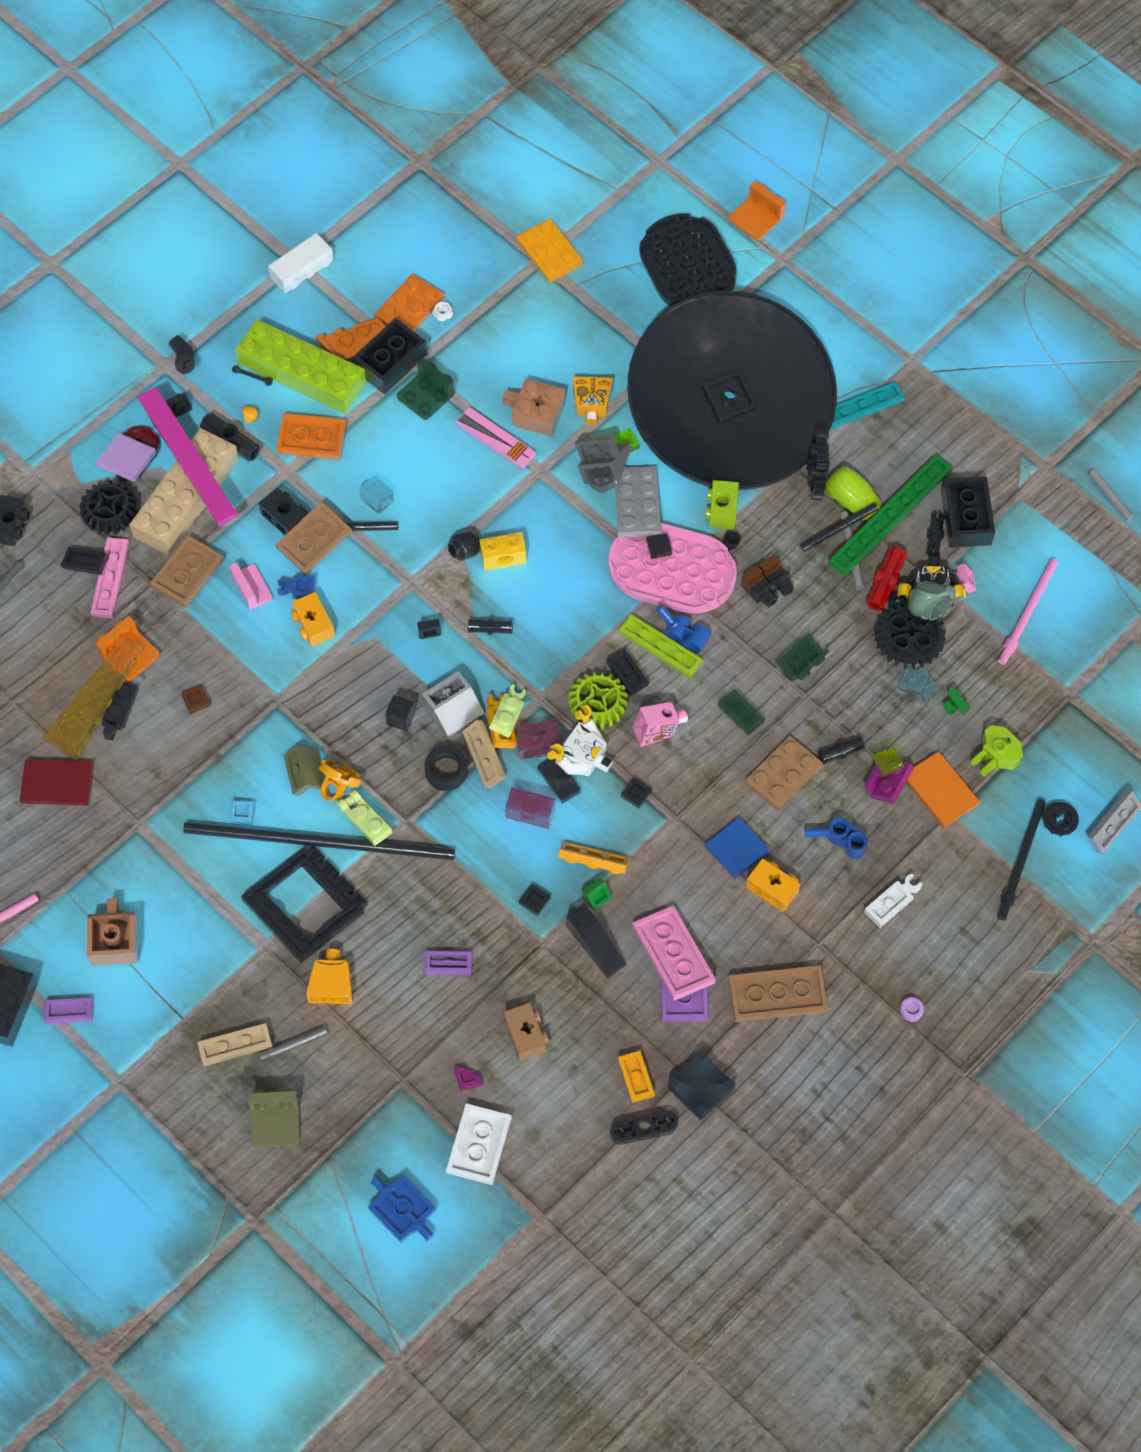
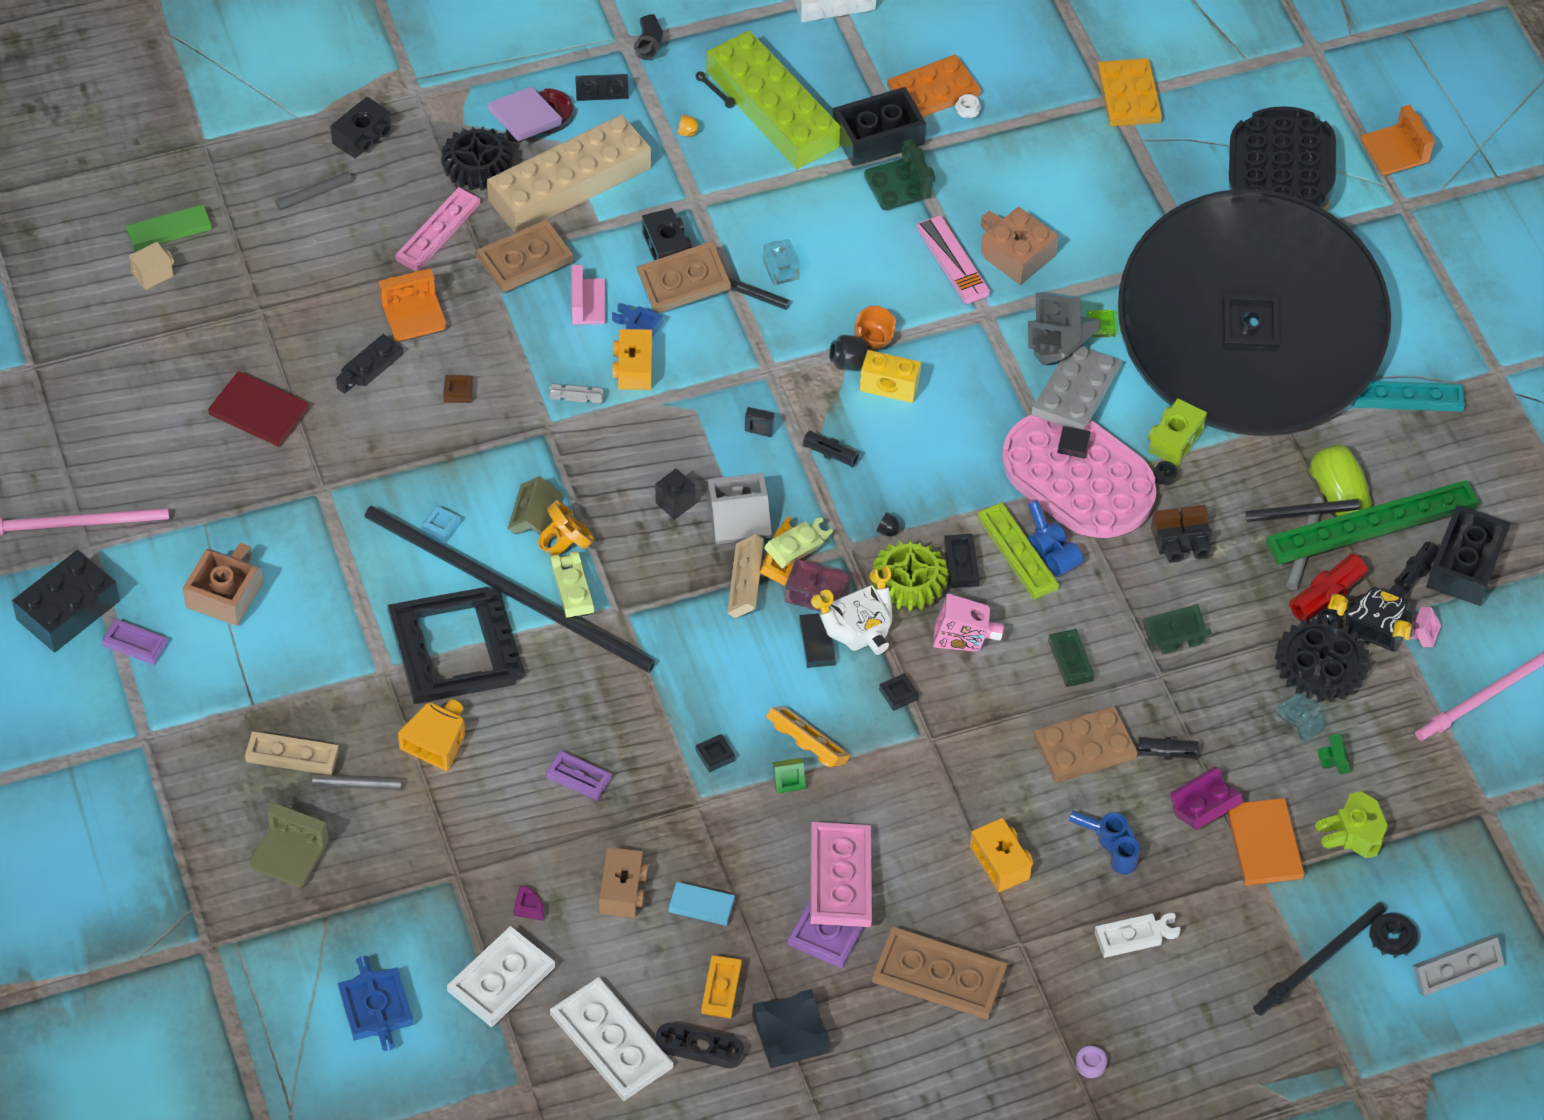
camera: 25 degrees right, 10 degrees down
(75, 723) = (306, 360): clear yellow wing -> none
(84, 560) = (419, 200): black tile -> none
(187, 456) = (588, 135): dark pink tile -> none
(245, 447) = (653, 133): black piece -> none
(284, 664) = (576, 393): none -> light grey axle
(311, 436) = (743, 175): orange plate -> none
(350, 341) = (837, 93): orange wing -> none
(445, 752) = (693, 590): black tyre -> none
(472, 517) = (875, 326): none -> orange hair
(530, 808) = (764, 653): clear pink brick -> none
(562, 667) = (889, 525): none -> black hinge
(579, 1152) = (611, 1038): none -> white tile
(587, 1020) = (701, 903): none -> medium azure tile
(592, 397) = (1089, 260): light orange torso -> none
(594, 940) = (757, 822): black slope -> none
(736, 848) = (982, 798): blue tile -> none
(818, 464) = (1309, 428): black gear -> none
(888, 761) = (1213, 777): clear neon green tile -> none
(930, 600) = (1361, 624): sand green helmet -> none

